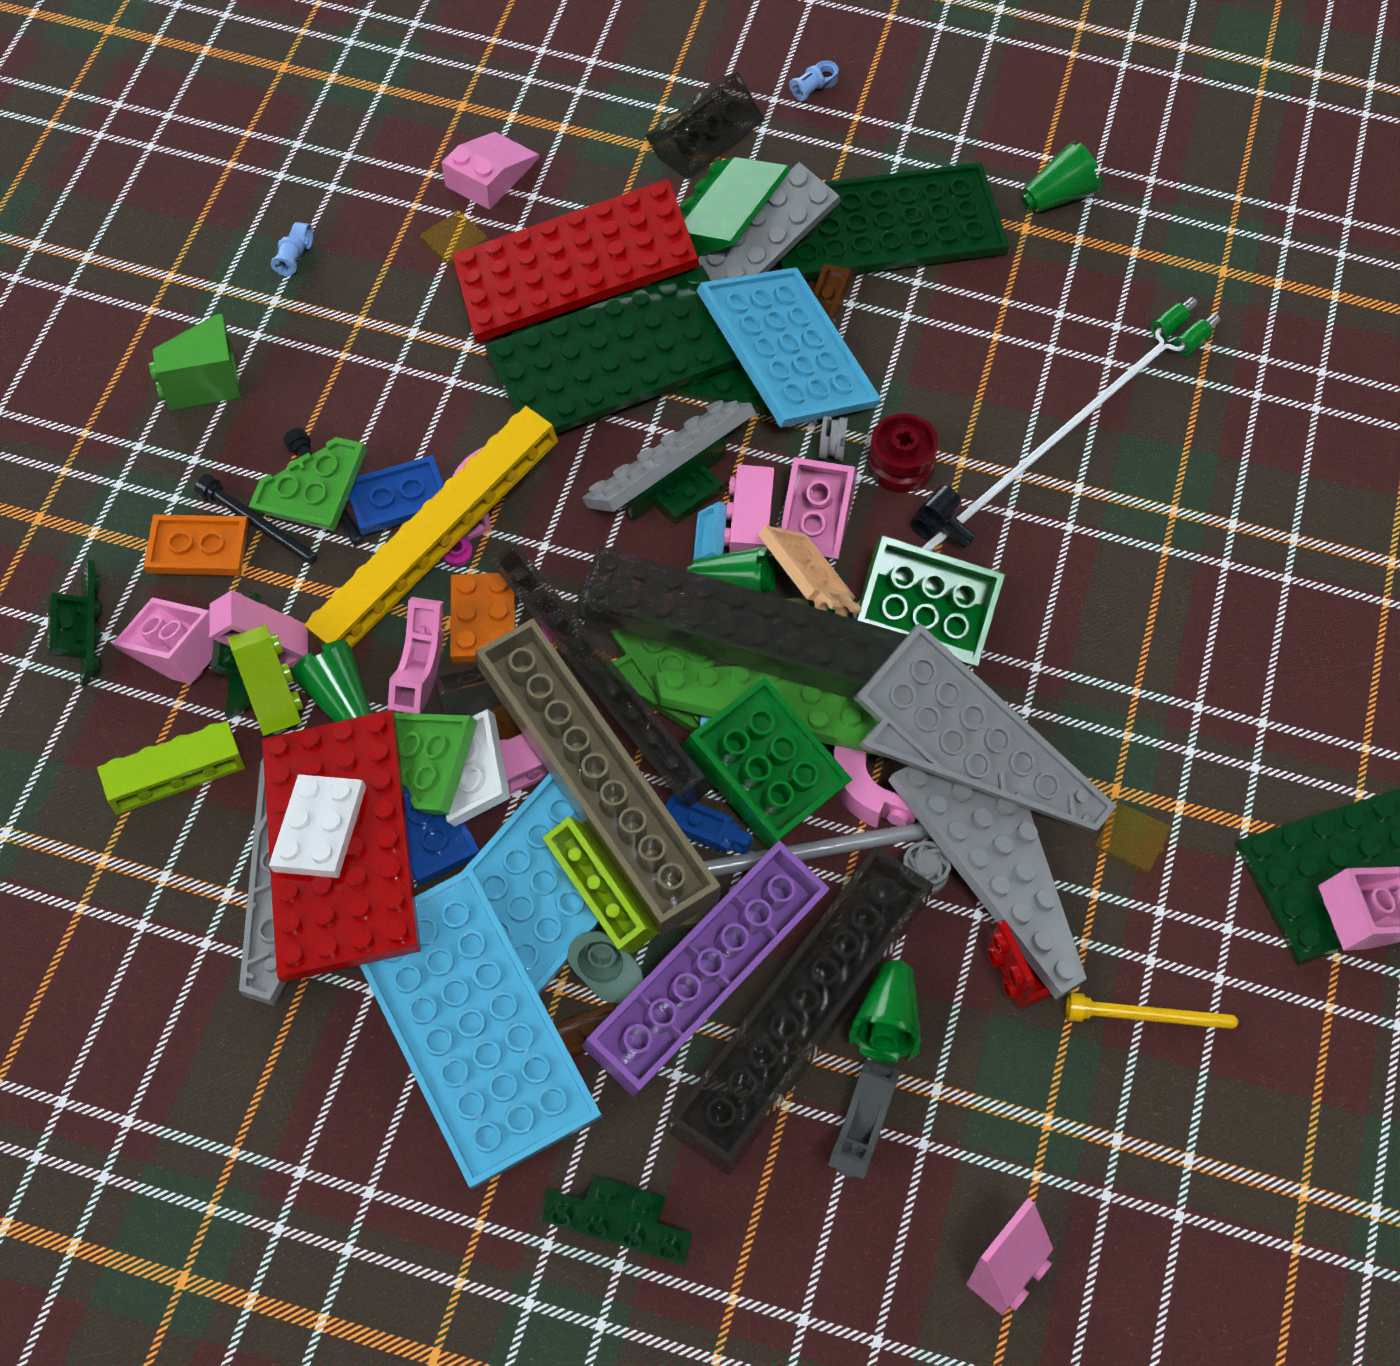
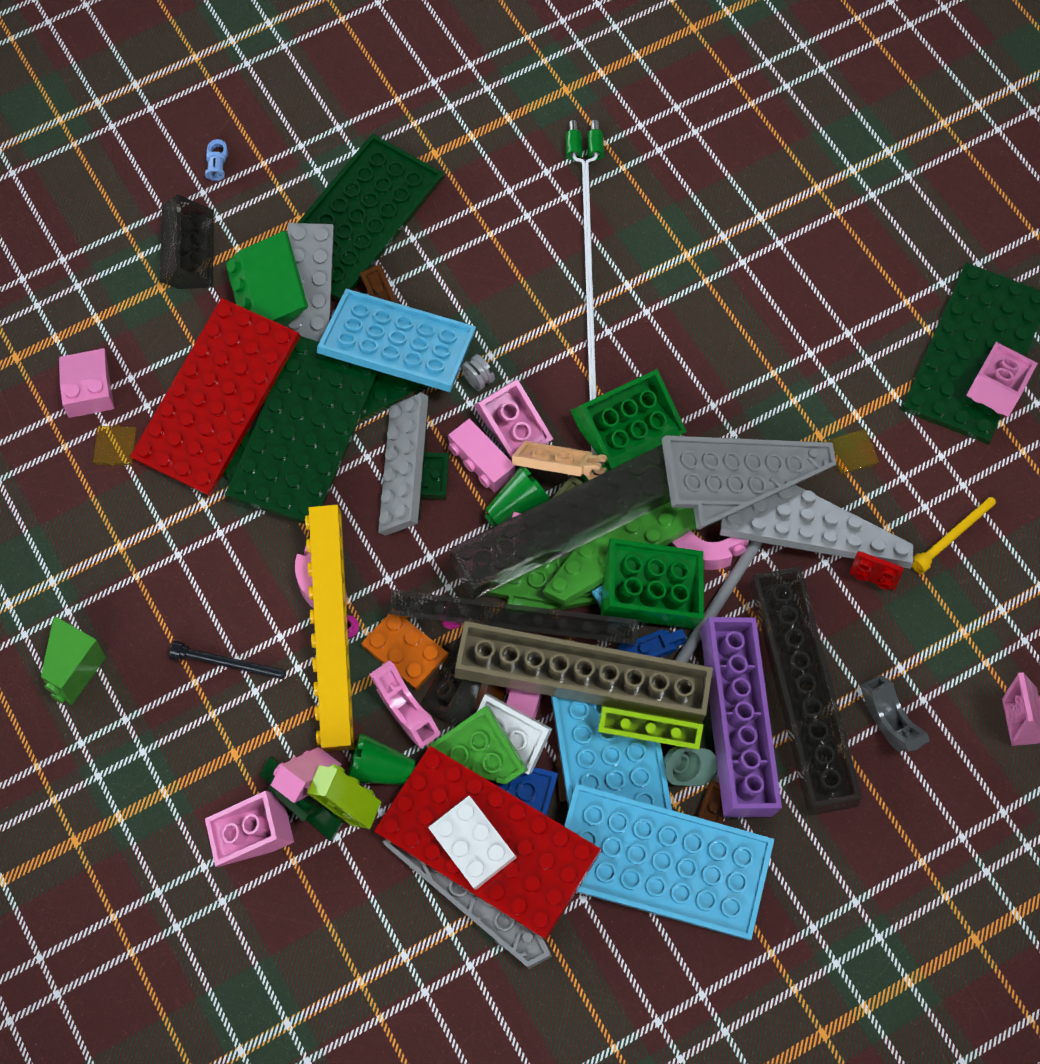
camera: 45 degrees left, 5 degrees up
(72, 624) = (183, 875): dark green bracket -> none
(170, 767) = (339, 896): lime brick -> none
(196, 545) = (195, 764): orange plate -> none
(210, 489) = (163, 725): black piece -> none
(291, 248) = (27, 541): light blue connector -> none
(312, 486) = (224, 667): bright green plate -> none
(393, 494) = (275, 627): blue plate -> none
(621, 1217) = (833, 877): dark green bracket -> none
(710, 531) = (473, 487): medium azure tile -> none
(889, 1016) = (847, 652): green cone -> none
(903, 453) = (523, 347): dark red wheel -> none
(929, 863) = (779, 558): light grey wheel -> none
(938, 515) = (581, 366): black beam -> none
(1063, 180) = (431, 106): green cone -> none

